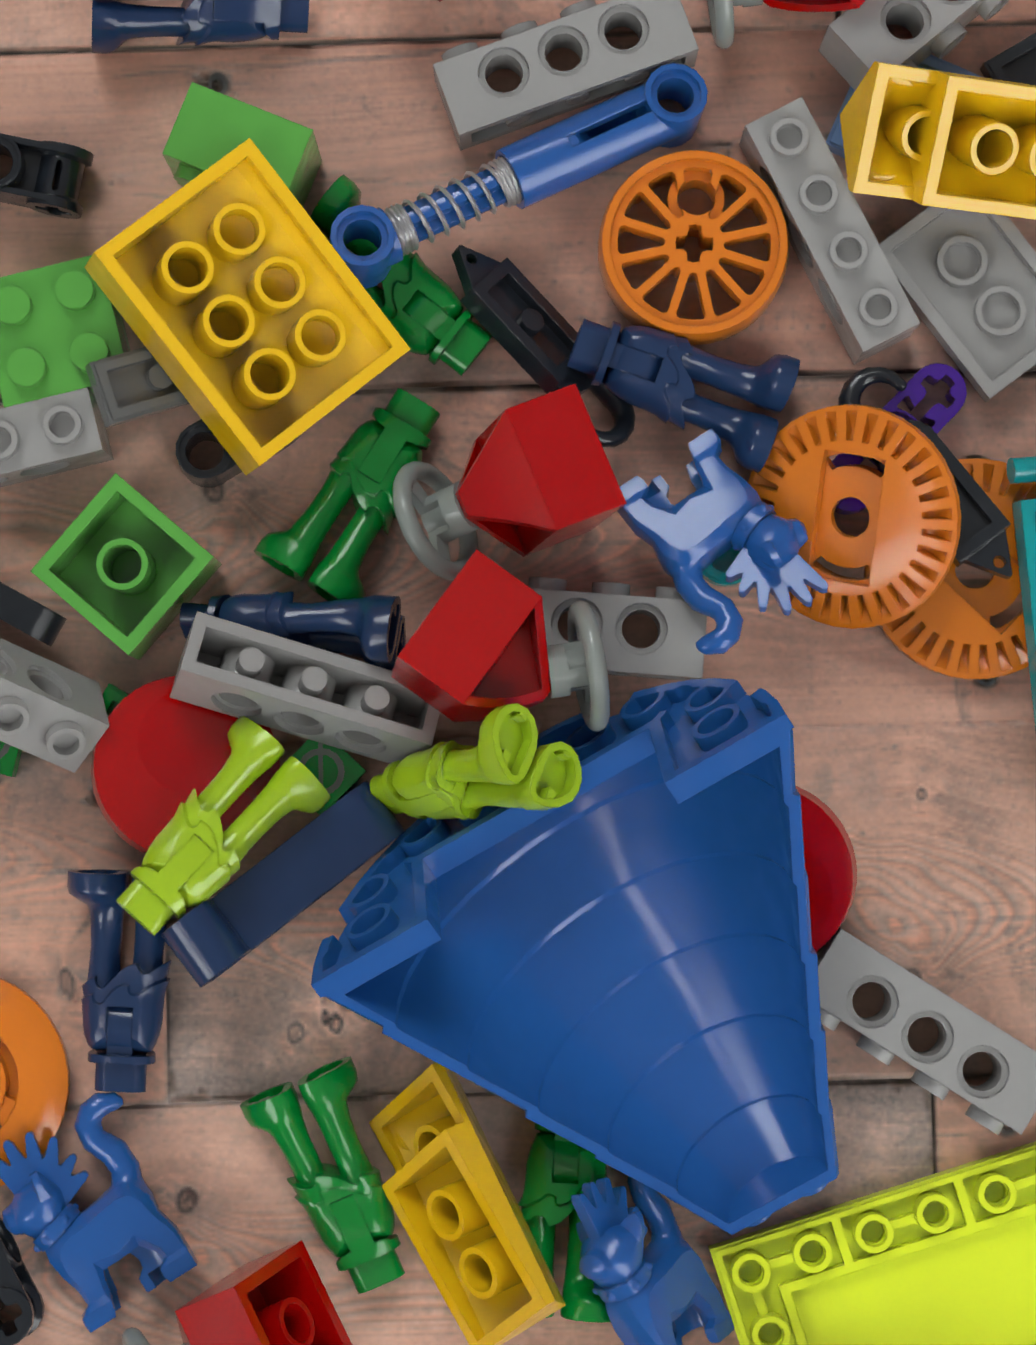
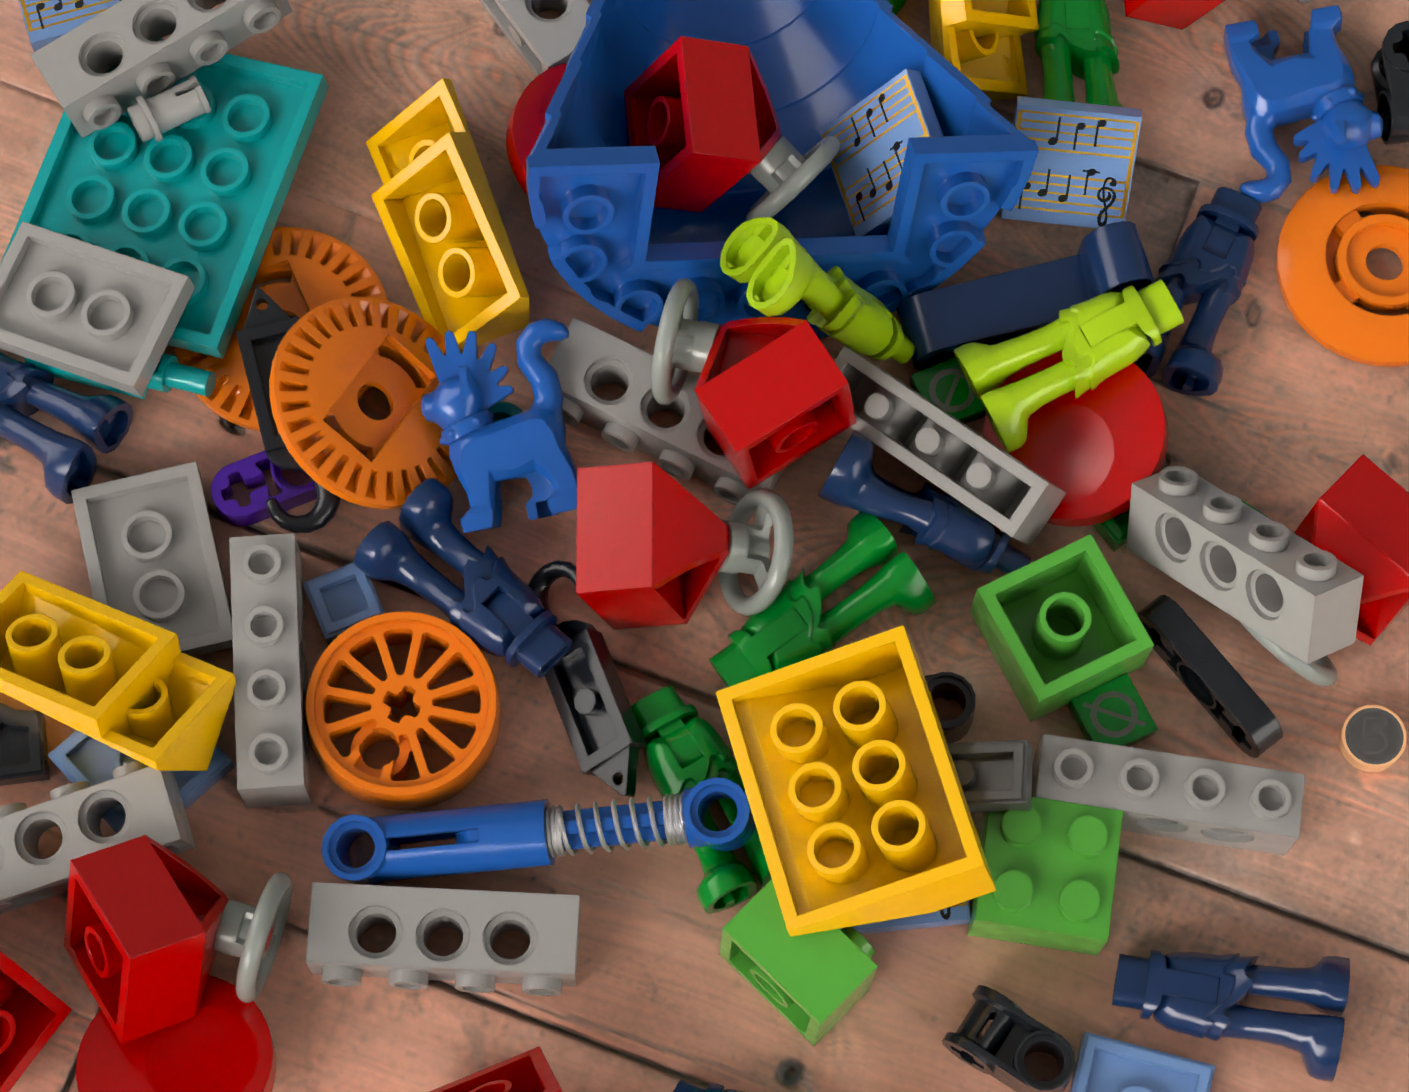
camera: 160 degrees left, 15 degrees down
(47, 512) = (1113, 714): none -> green tile
(290, 1050) = (1081, 162): none -> medium blue tile
(477, 967) = (875, 145): none -> medium blue tile
(638, 906) = (713, 126): none -> red piece
(794, 331) = (342, 599): none -> medium blue tile
(870, 736) = (447, 221): none -> yellow slope

